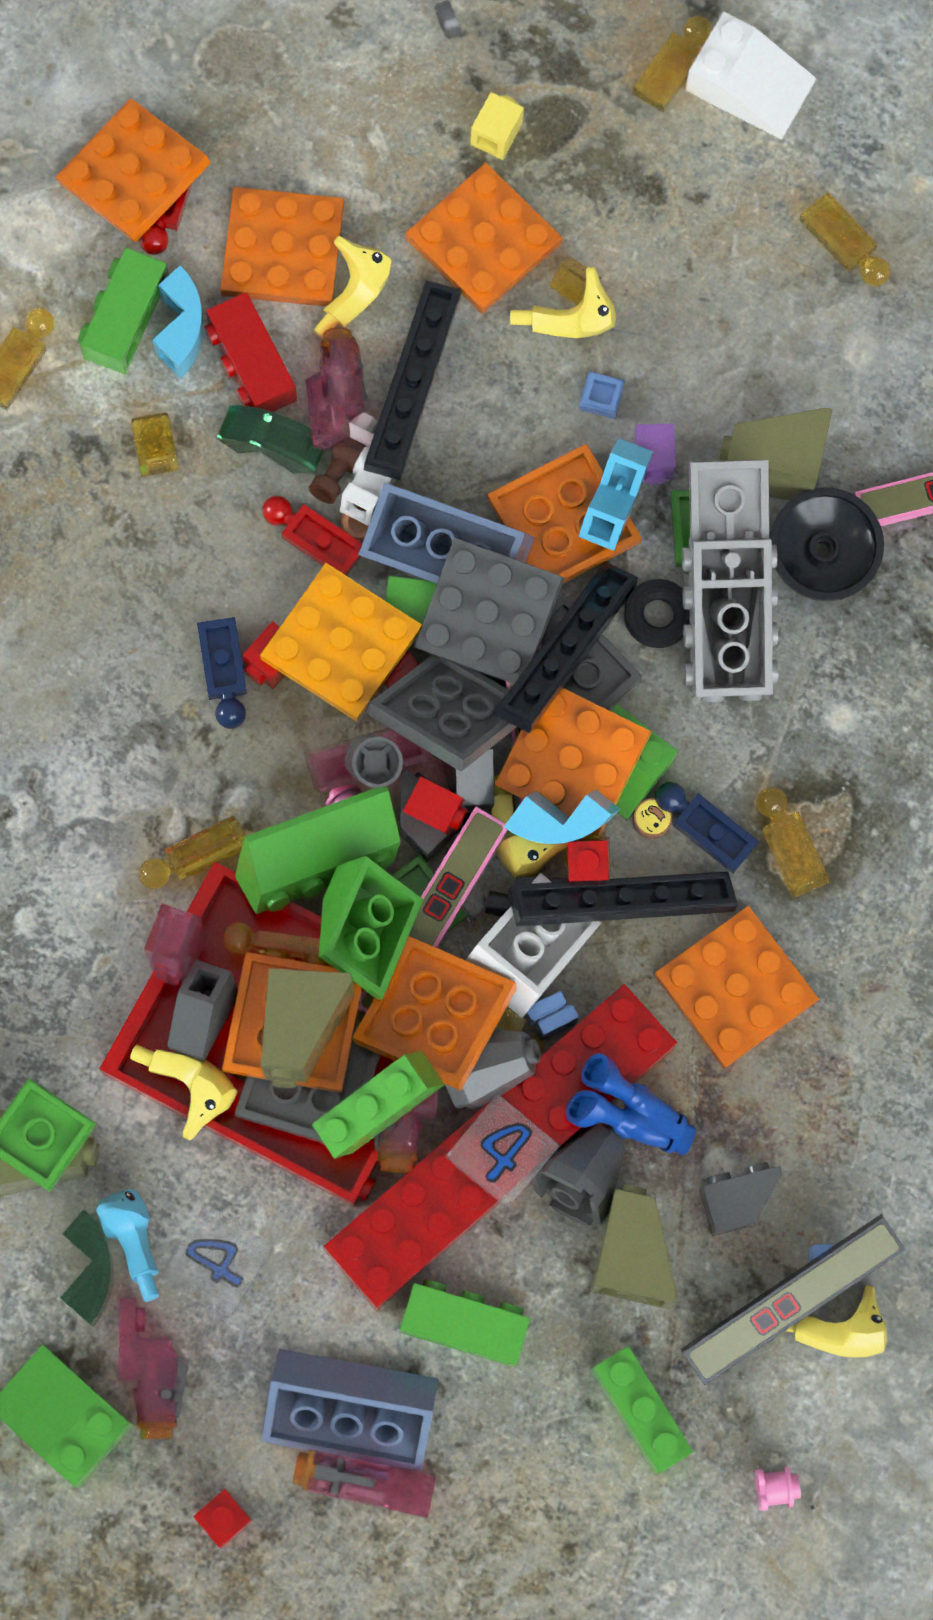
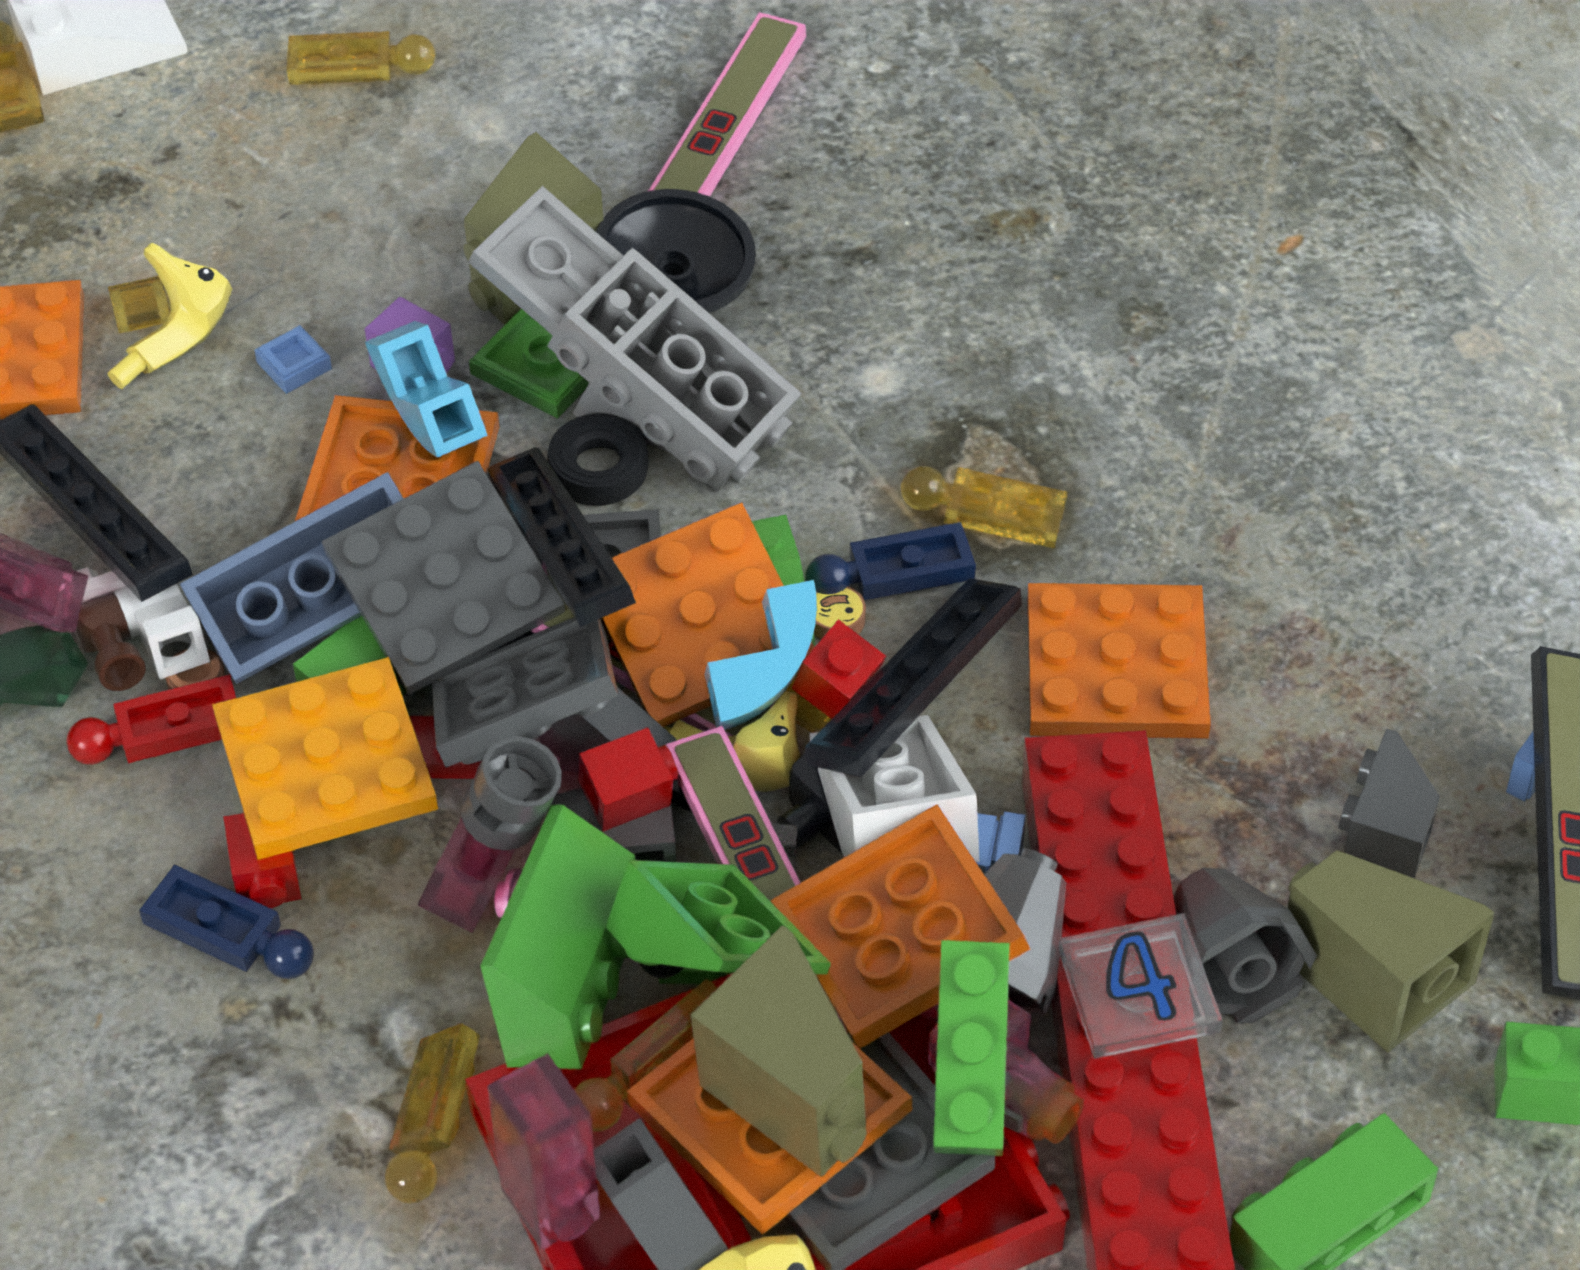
camera: 45 degrees left, 25 degrees down
(644, 1114) = (1182, 823): blue piece -> none

